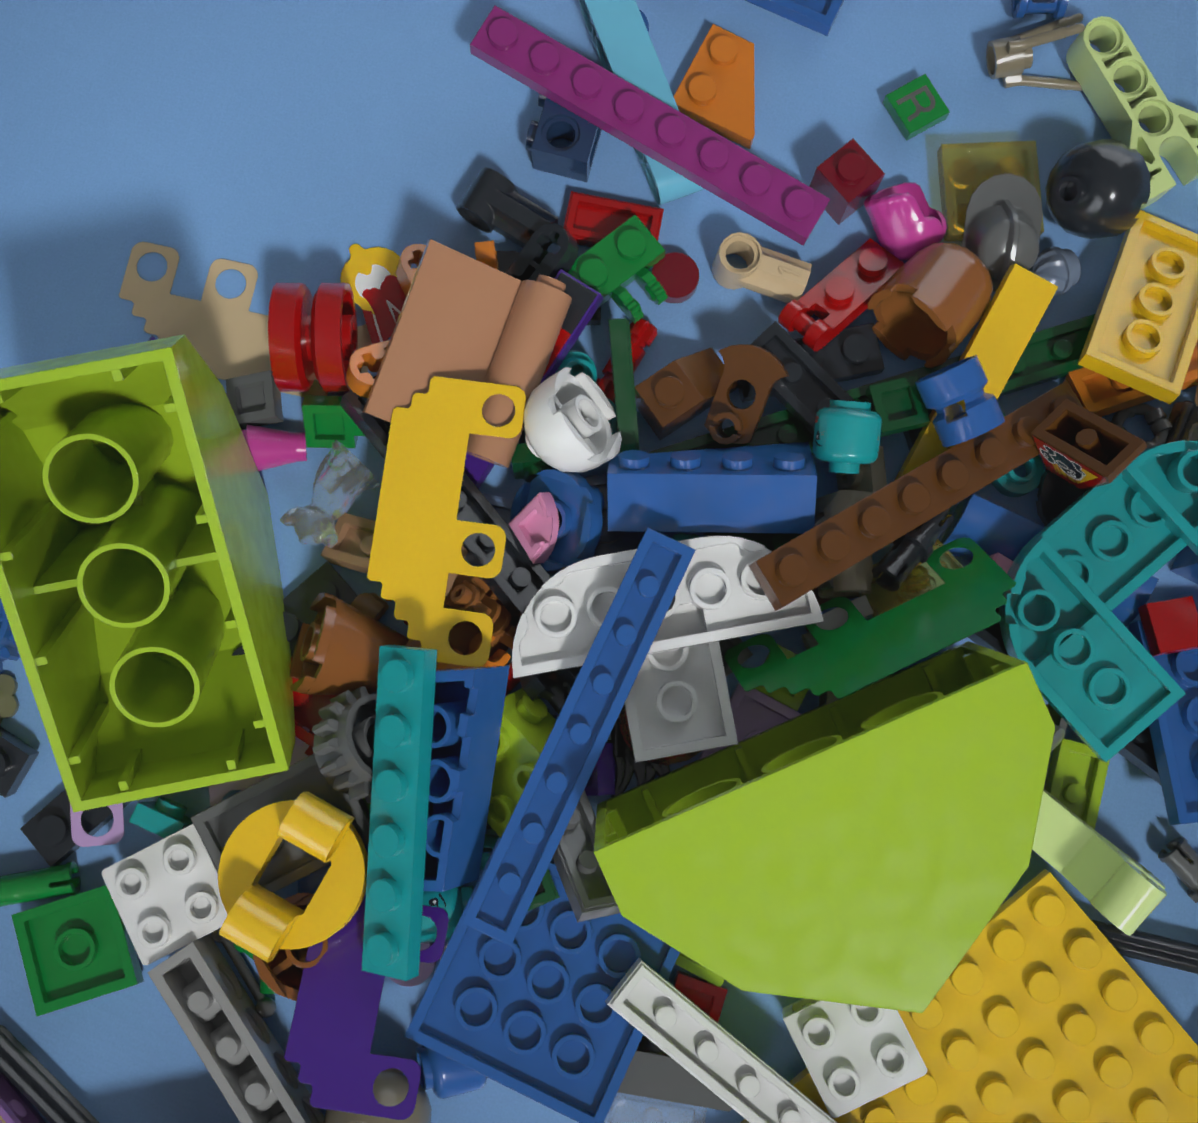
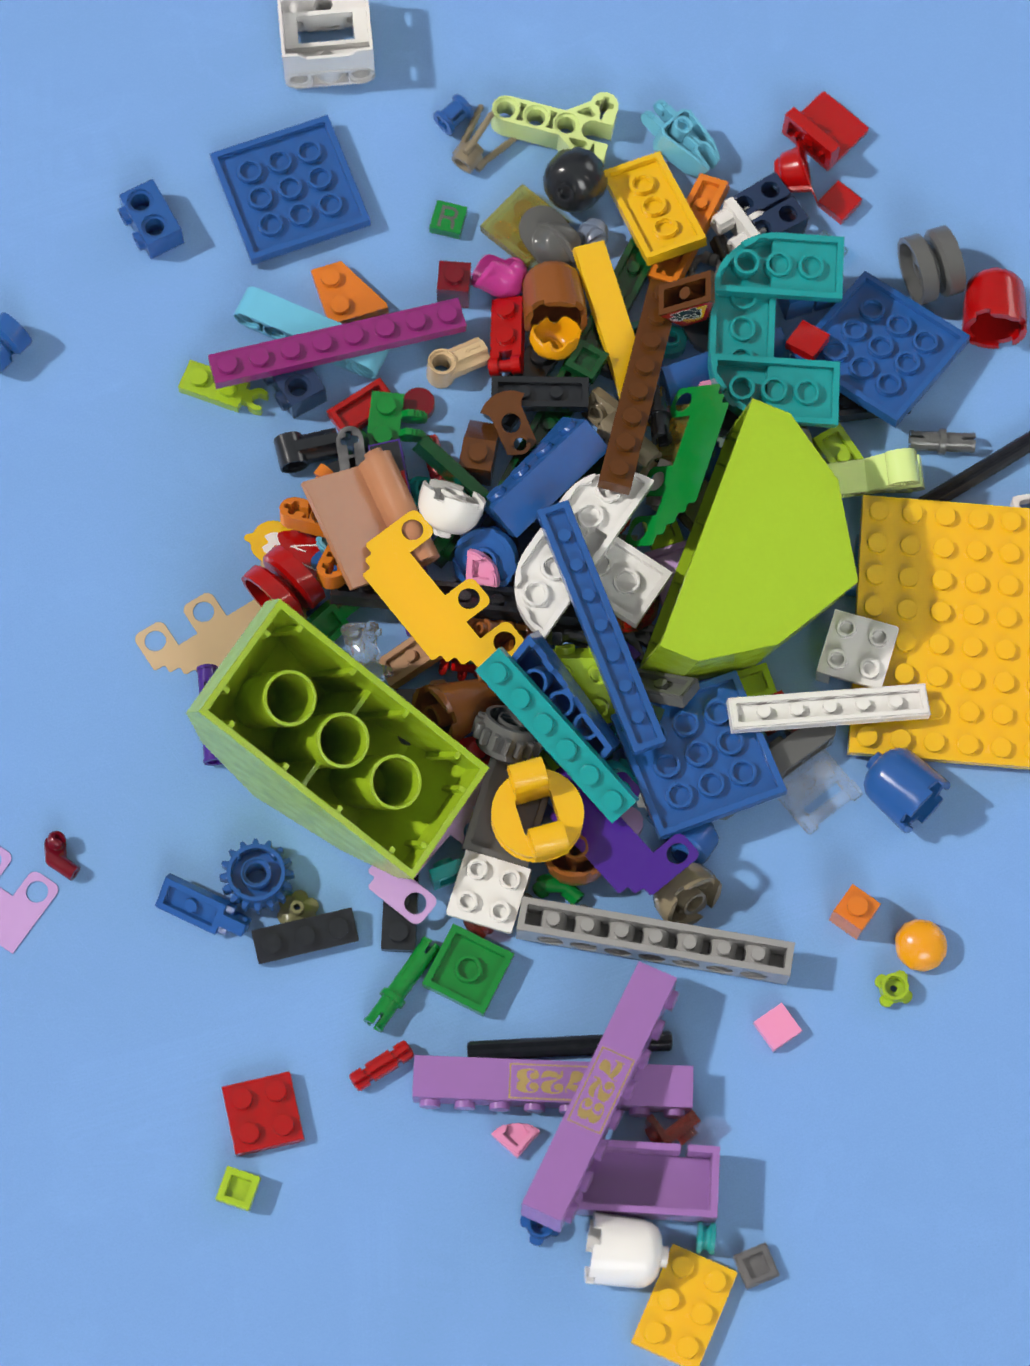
camera: 45 degrees left, 10 degrees down
(489, 82) = (199, 383): none -> lime plate
(847, 435) = (579, 393): teal head -> none
(889, 346) = (555, 339): none -> light orange hair
(955, 383) = (602, 327): blue wheel -> none

